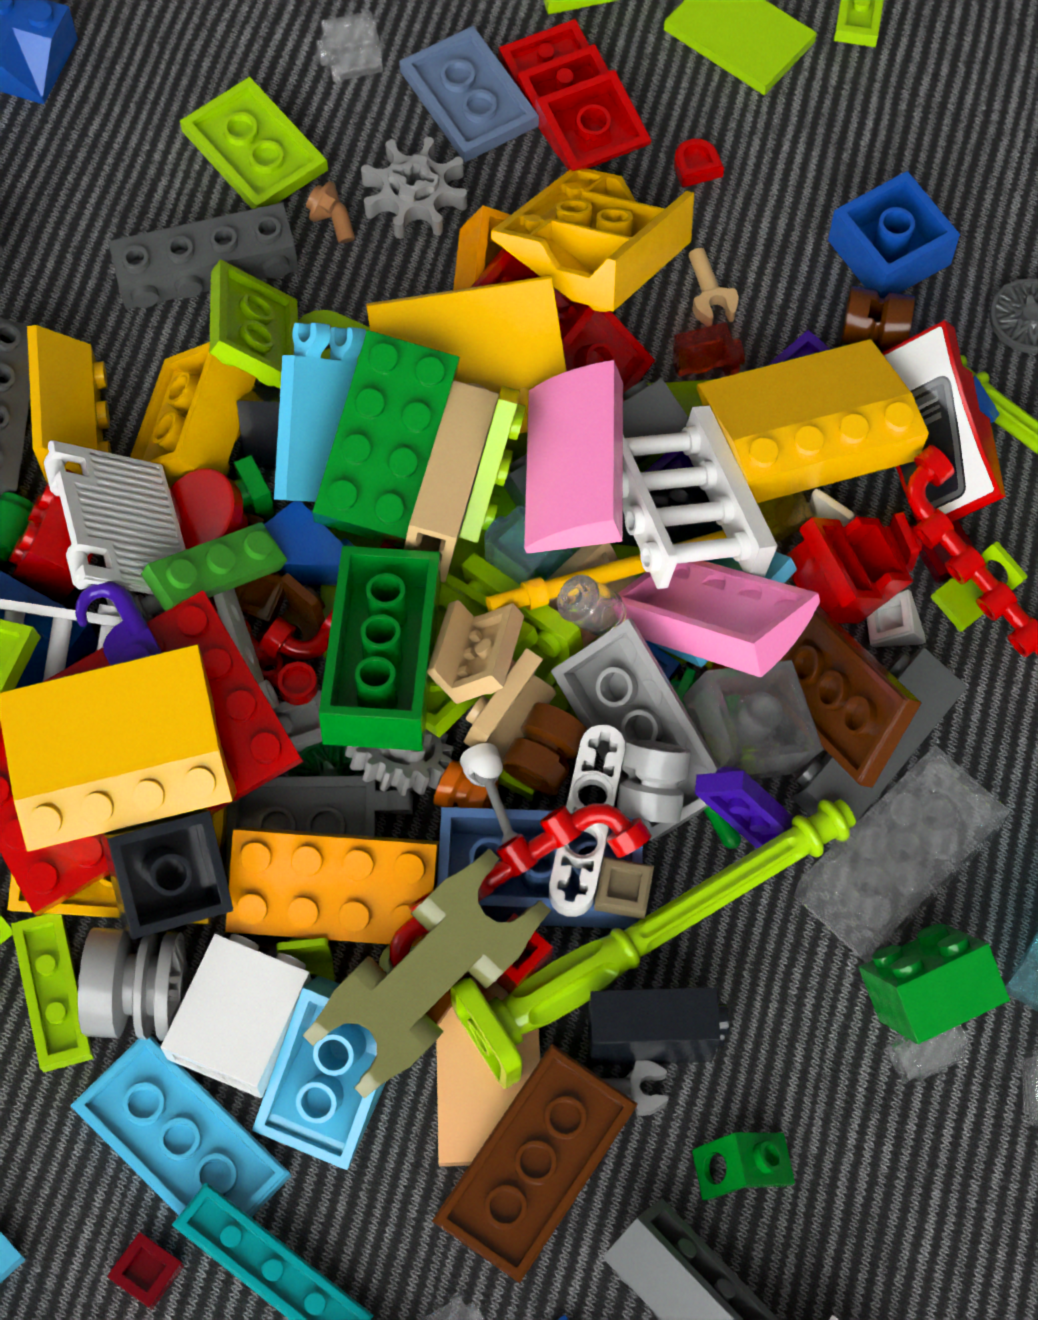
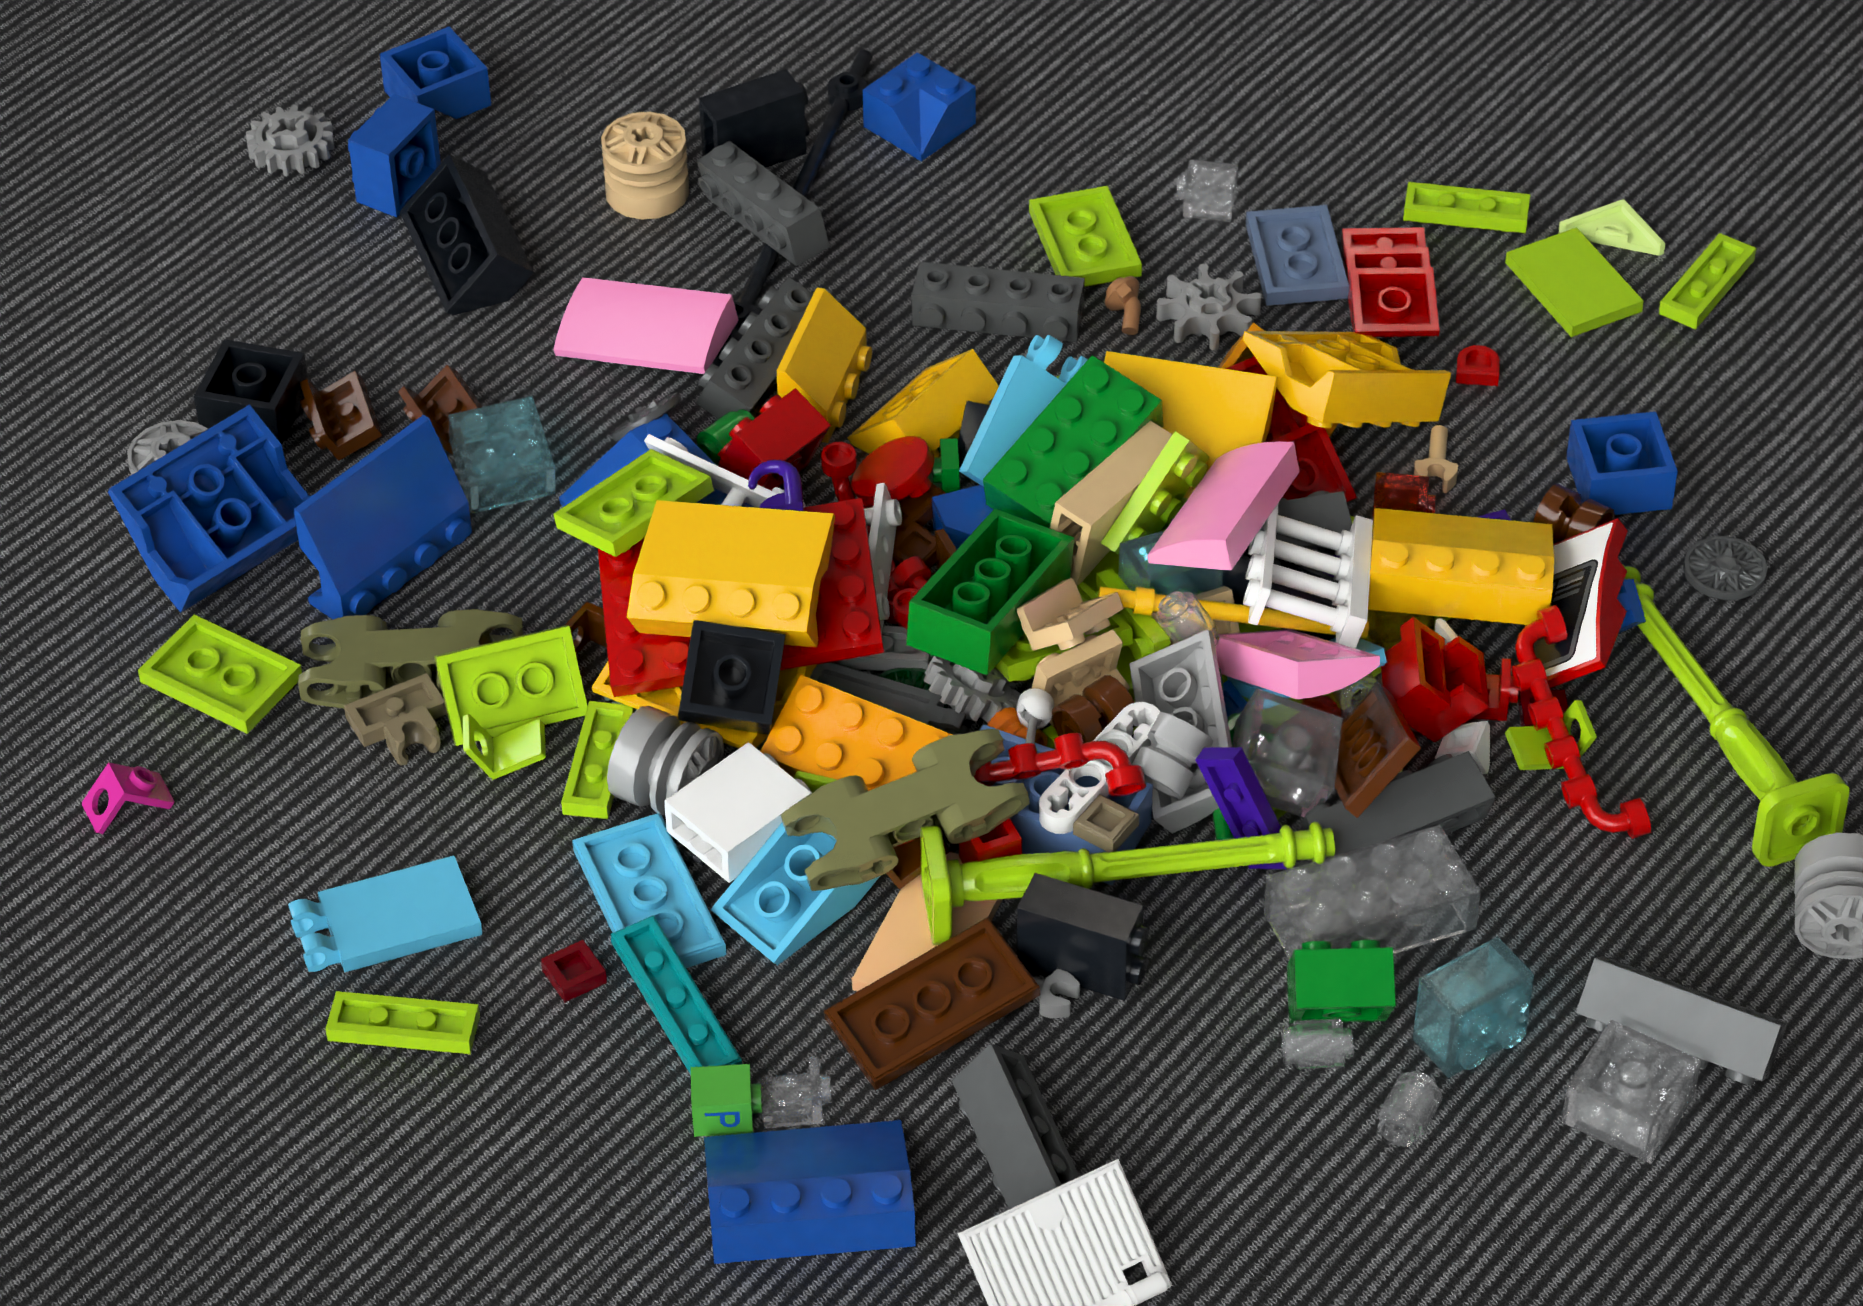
camera: 25 degrees right, 20 degrees down
(113, 511) = (827, 433): white window -> none
(214, 566) = (885, 496): bright green plate -> none
(250, 323) = (997, 339): lime plate -> none
(750, 1160) = (1115, 1063): green bracket -> none

